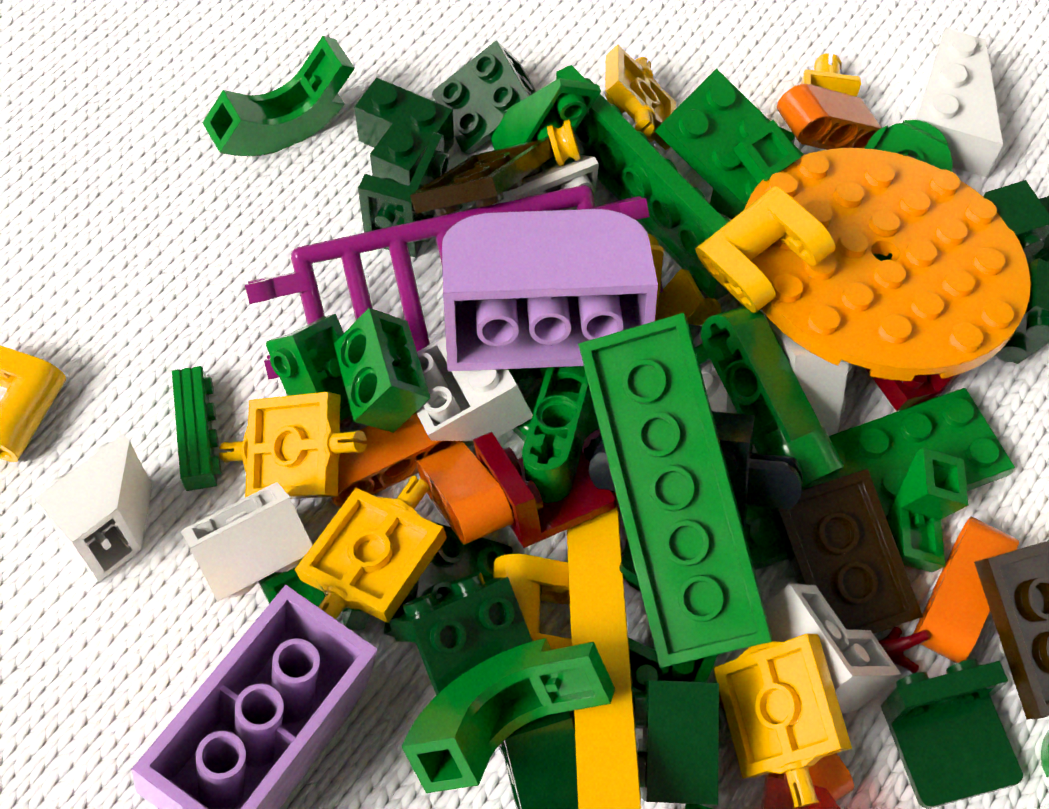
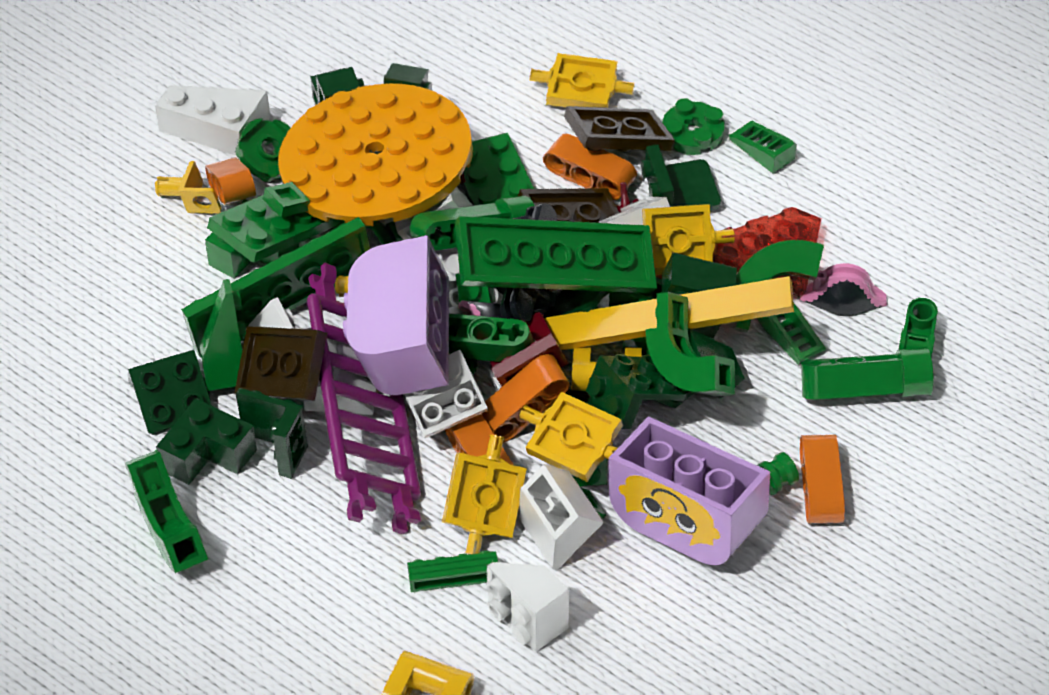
camera: 85 degrees left, 10 degrees down
(309, 360) = (421, 485): green bracket -> none
(381, 370) = (434, 422): green brick -> none
(563, 143) = (259, 313): yellow bush -> none
(636, 92) = (193, 287): yellow plate -> none
(769, 218) = (363, 197): yellow connector -> none
(929, 493) = (528, 167): green slope -> none

